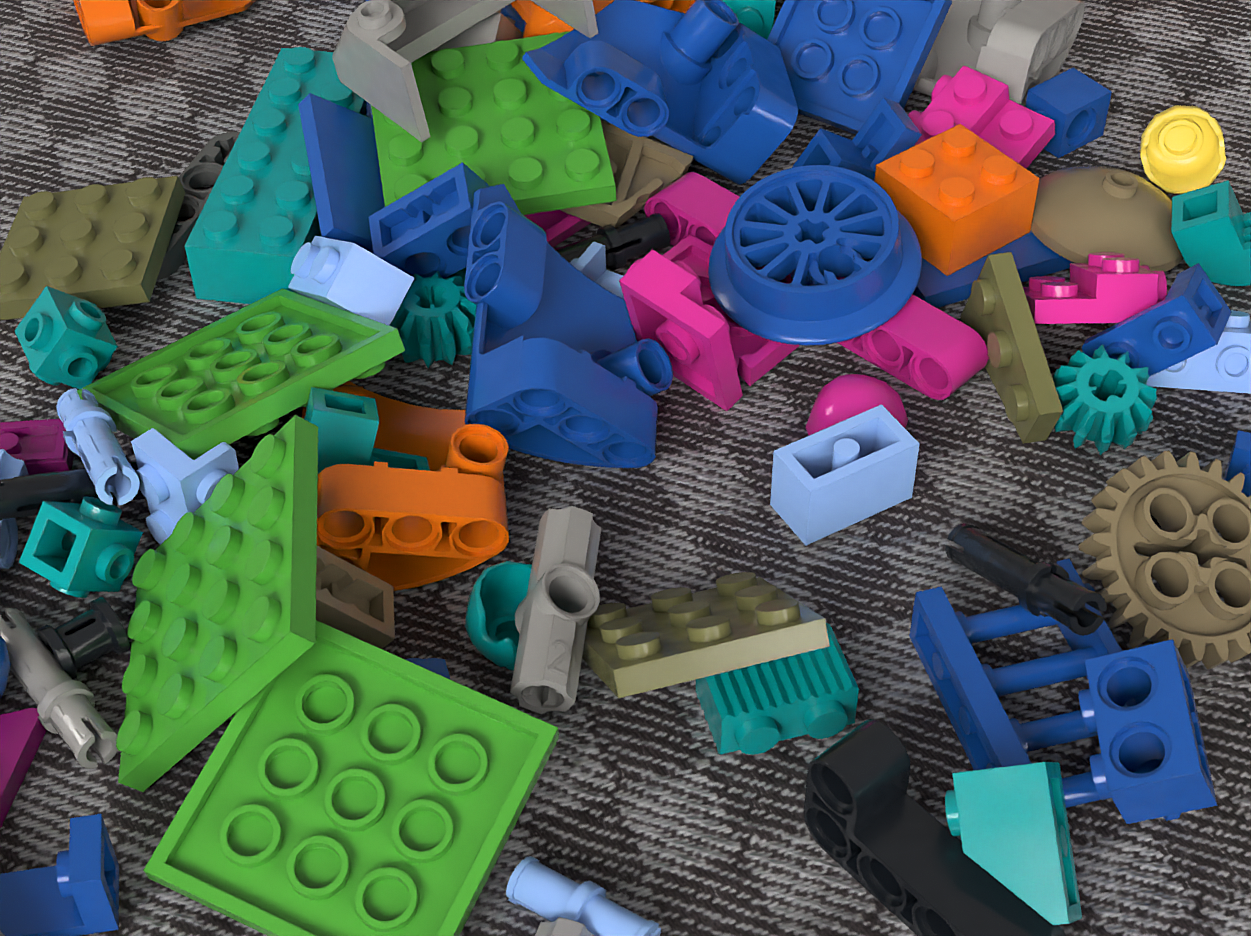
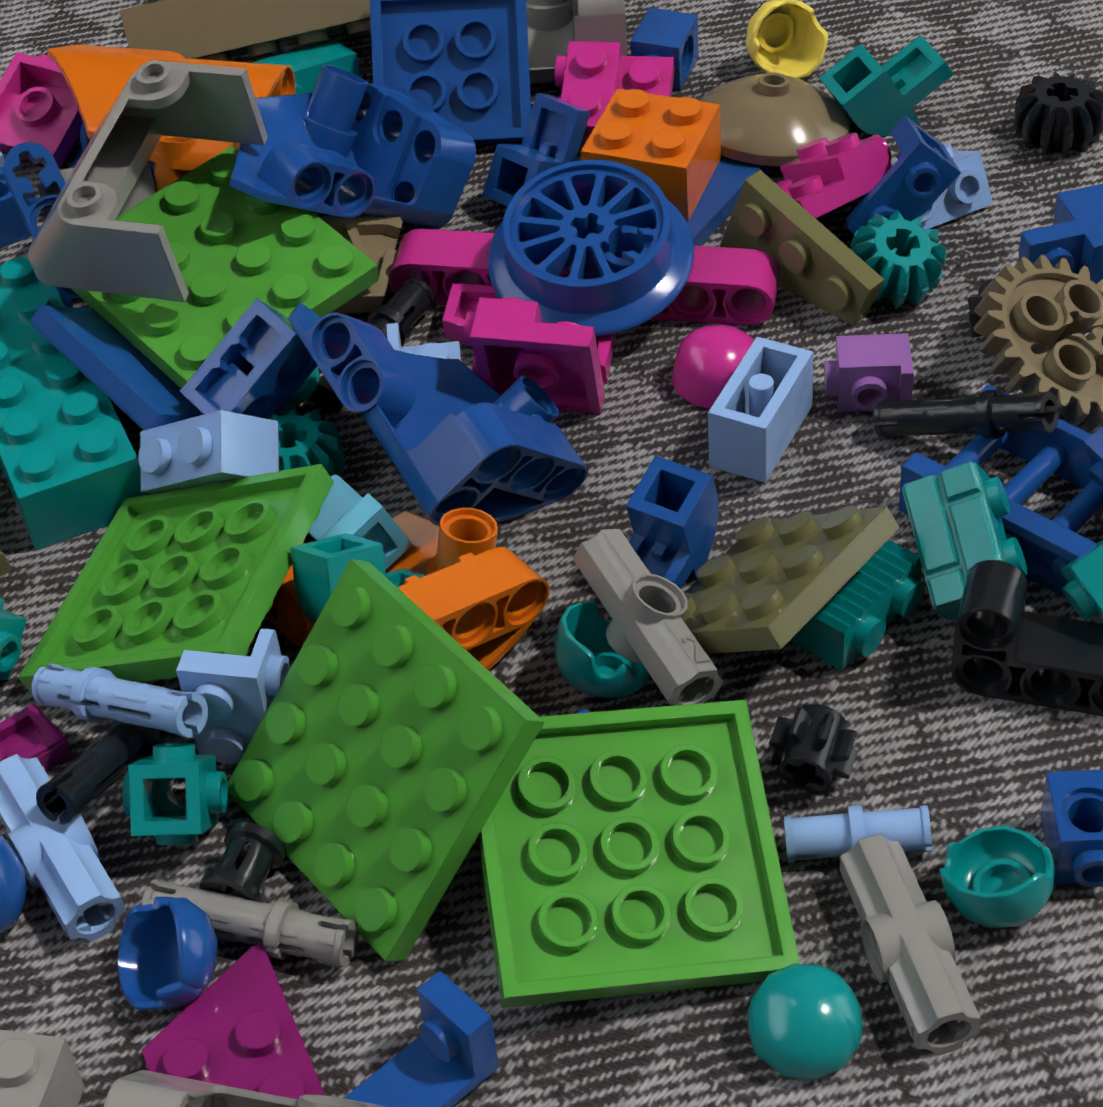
camera: 30 degrees left, 0 degrees up
(414, 403) = (364, 517): none -> medium azure bracket
(610, 808) = (813, 747): none -> black gear
(667, 546) = (673, 519): none -> blue brick
(911, 684) = (957, 526): none -> teal brick
(983, 491) = (869, 371): none -> medium lavender brick

